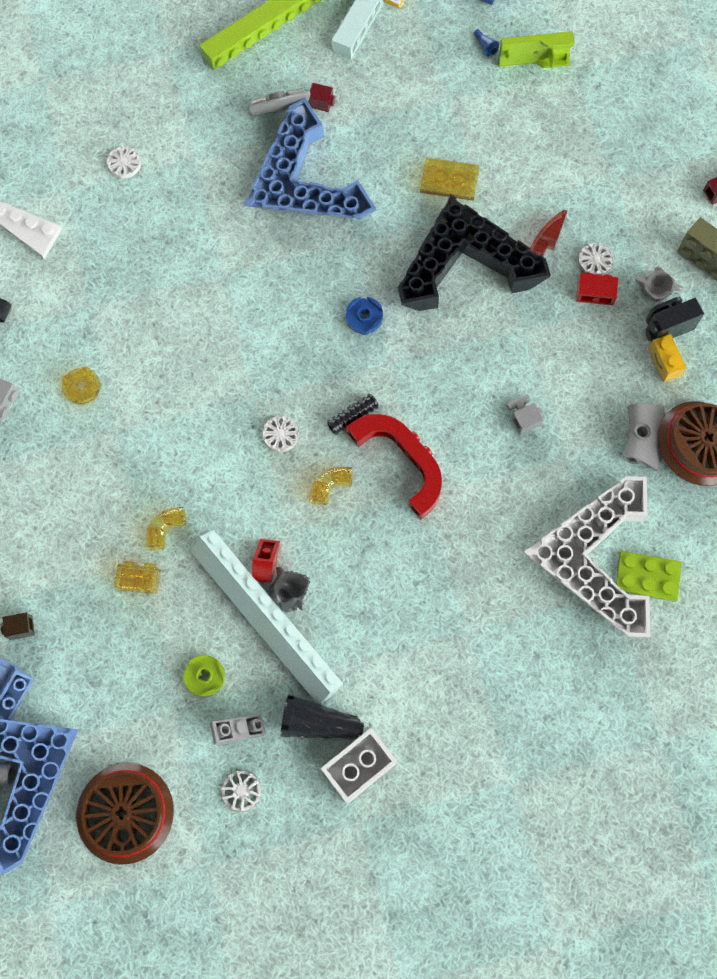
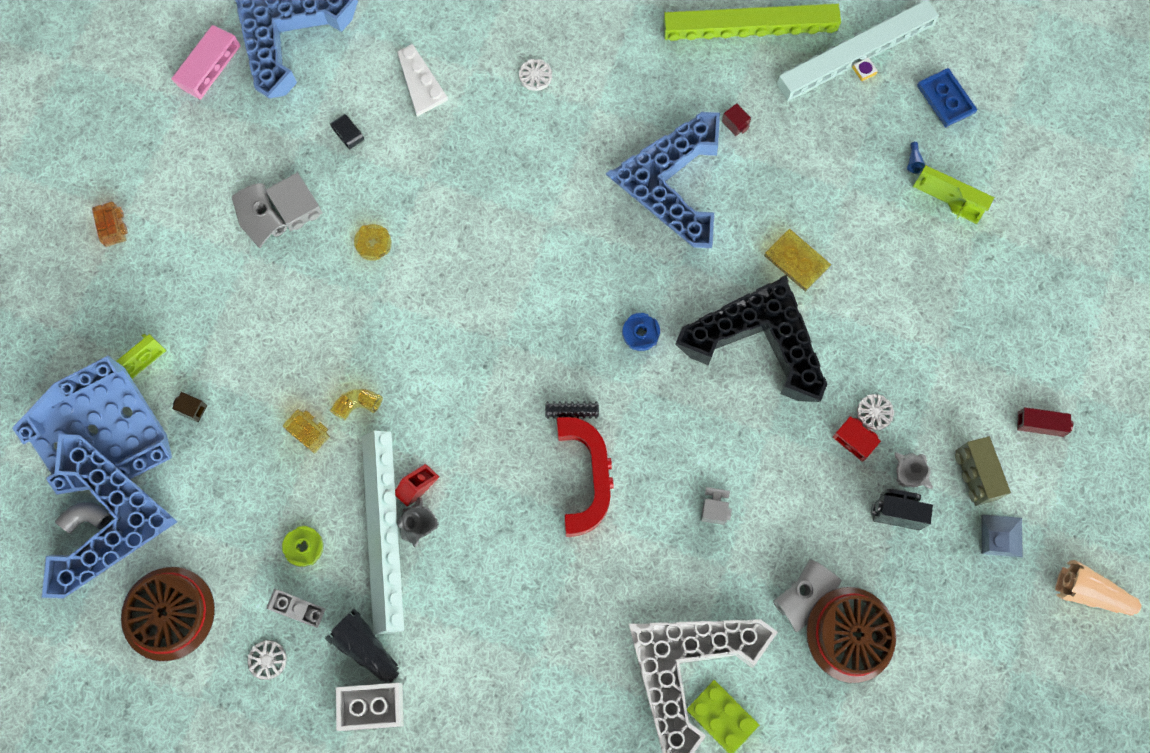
camera: 30 degrees right, 0 degrees up
(278, 102) = (696, 102): light grey panel -> none
(280, 434) = (502, 387): white wheel -> none
(327, 481) = (512, 453): clear yellow cylinder -> none
(549, 234) = (847, 364): clear red slope -> none
(667, 358) = (874, 540): yellow brick -> none

